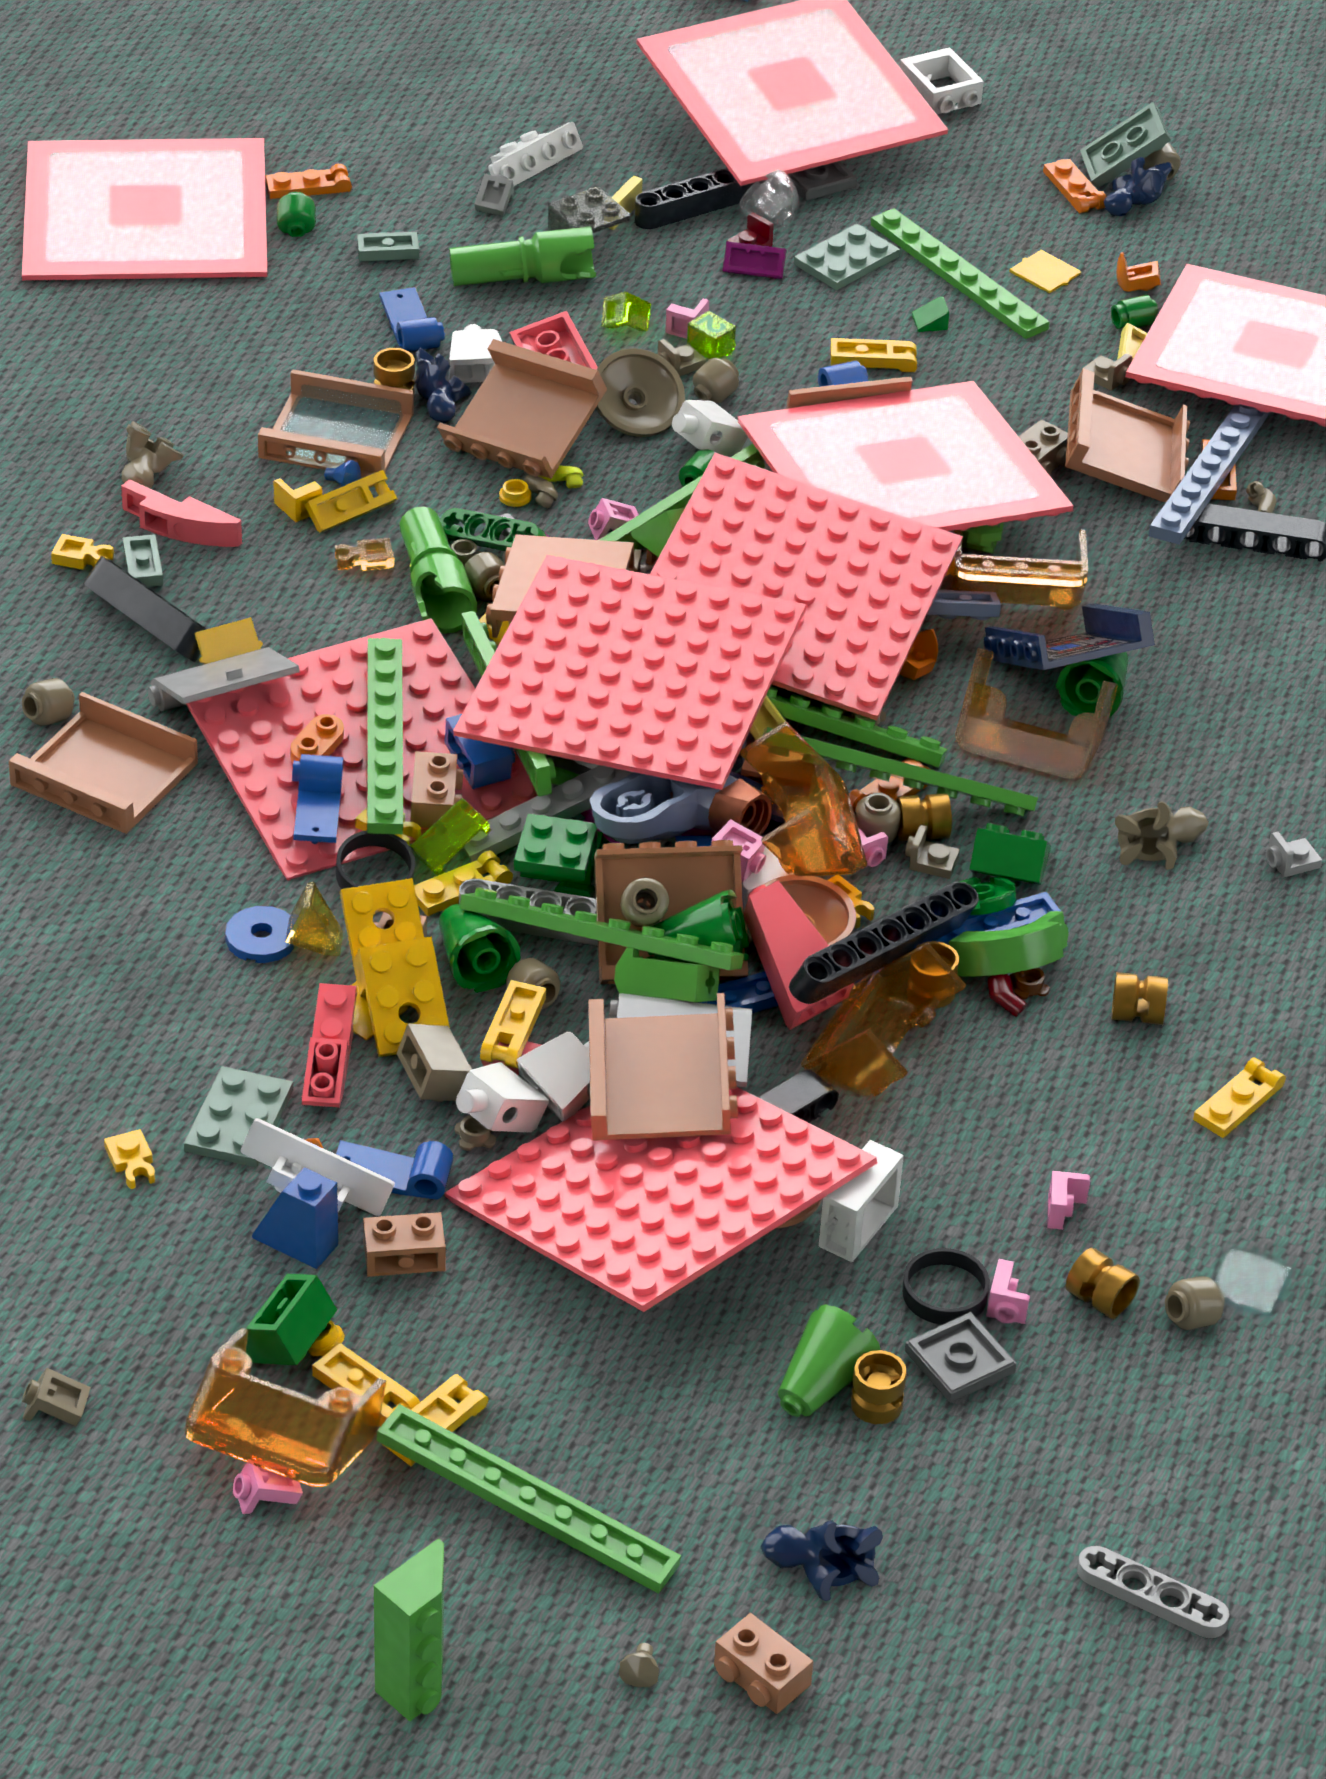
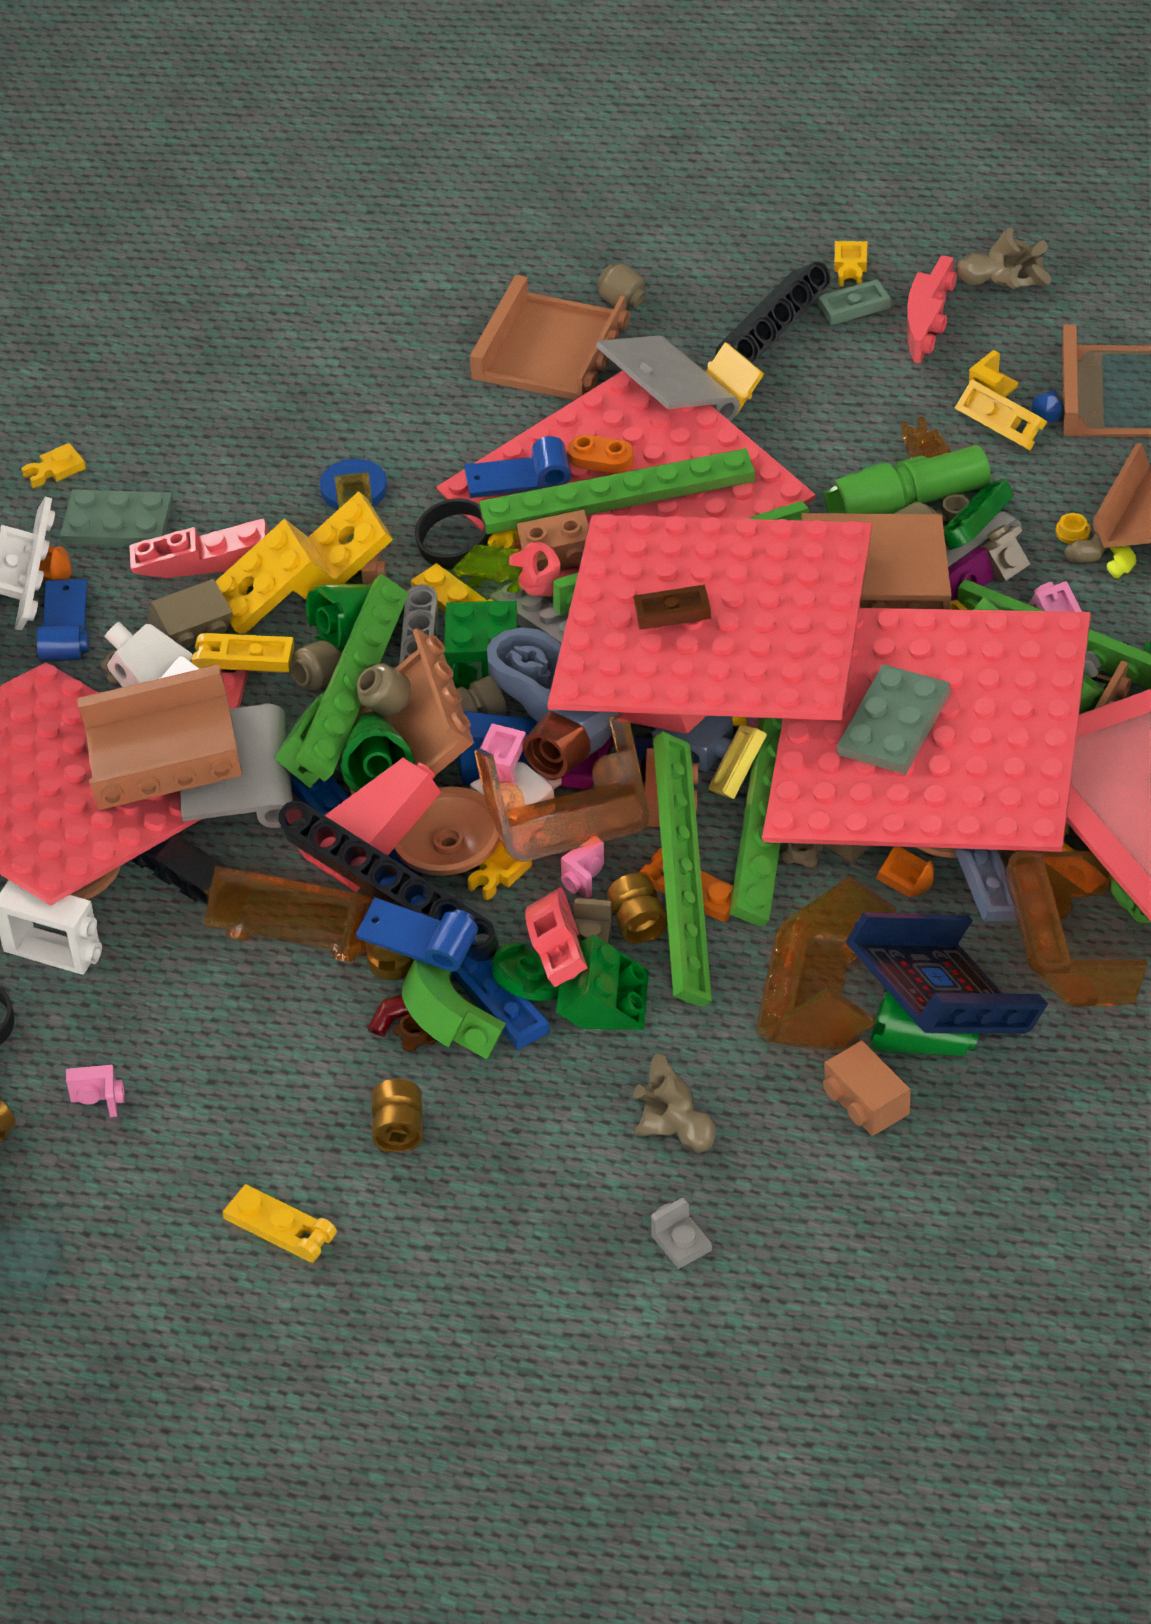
camera: 85 degrees right, 5 degrees up
(487, 798) = (533, 581): none -> coral hair
(543, 517) = (1005, 552): none -> dark tan bracket
(638, 677) = (672, 607): none -> reddish brown plate
(786, 578) = (894, 719): none -> sand green plate
(878, 814) = (614, 863): dark tan head -> none
(953, 857) = (555, 937): none -> coral slope
(970, 921) = (418, 935): none -> blue door
(1161, 718) = (866, 1088): none -> nougat brick

